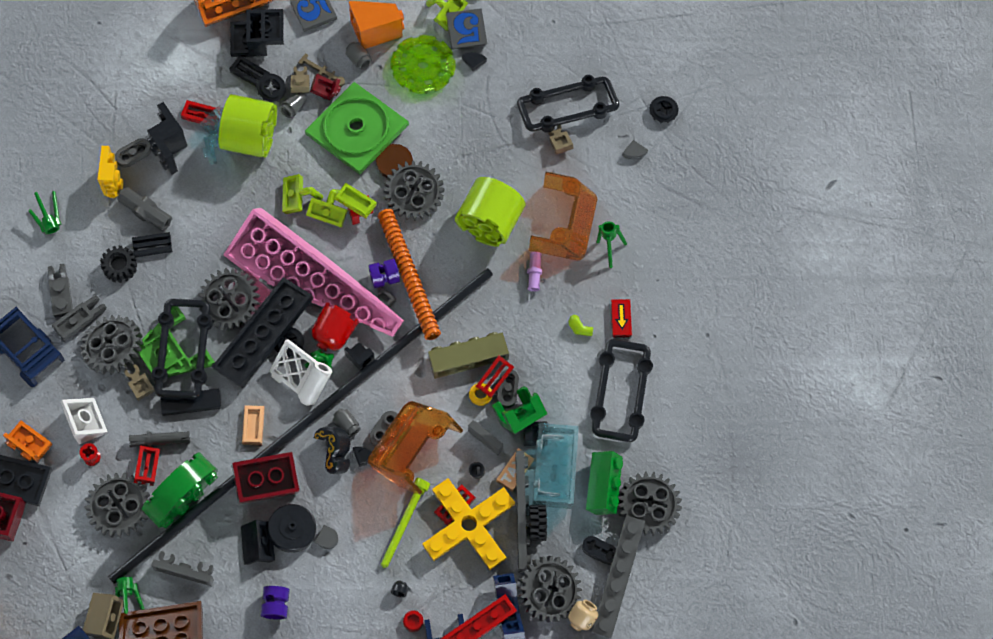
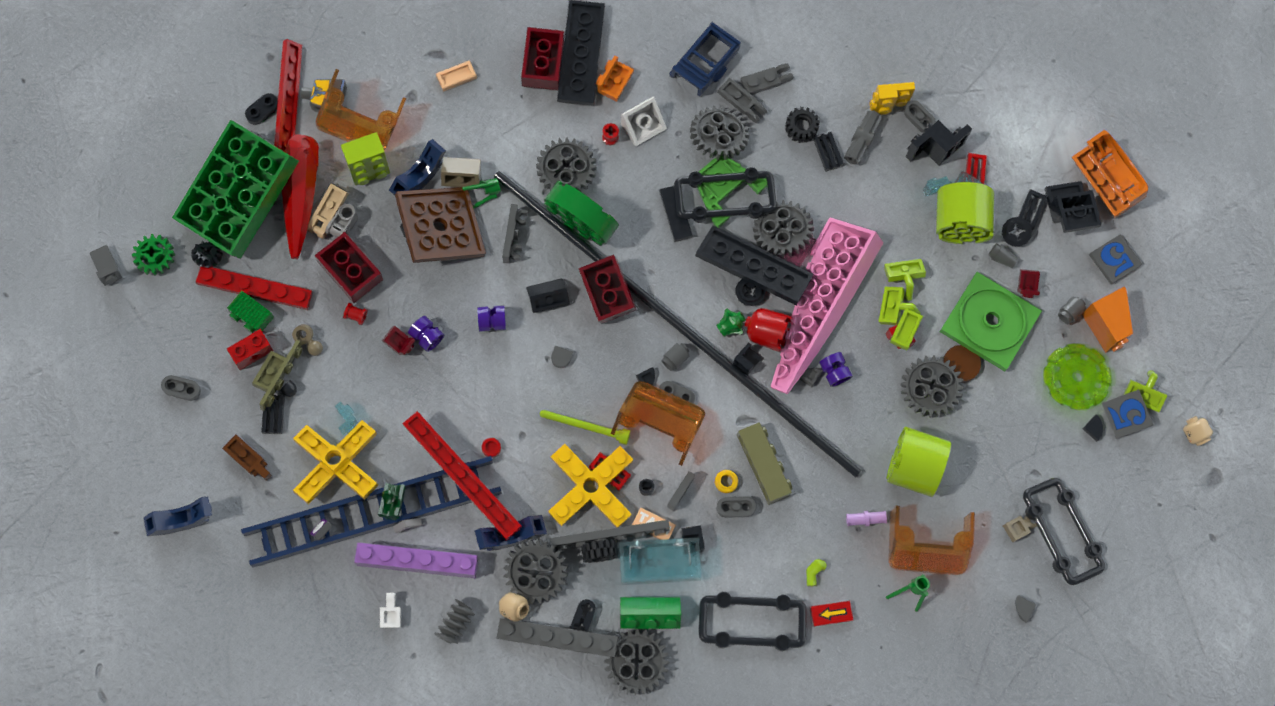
camera: 80 degrees right, 5 degrees up
(49, 223) = (832, 56): green plant -> none
(140, 384) = (685, 165): dark tan plate -> none
(144, 479) = (591, 184): red tile -> none
(159, 439) = (634, 190): dark grey pin -> none
(253, 425) = (661, 273): light nougat tile -> none
(291, 528) = (564, 322): black wheel -> none
(300, 81) = (1029, 258): dark tan plate -> none
(310, 383) = (714, 317): white piece -> none
(321, 70) = (1041, 298): dark tan piece -> none
(337, 448) = (647, 351): black animal -> none
(399, 589) = (519, 430): black hinge -> none
(409, 274) = (839, 392): orange piece -> none
(485, 389) = (758, 498): red tile -> none
(523, 415) = (707, 522): green panel -> none
(667, 103) = (1088, 637): black gear -> none

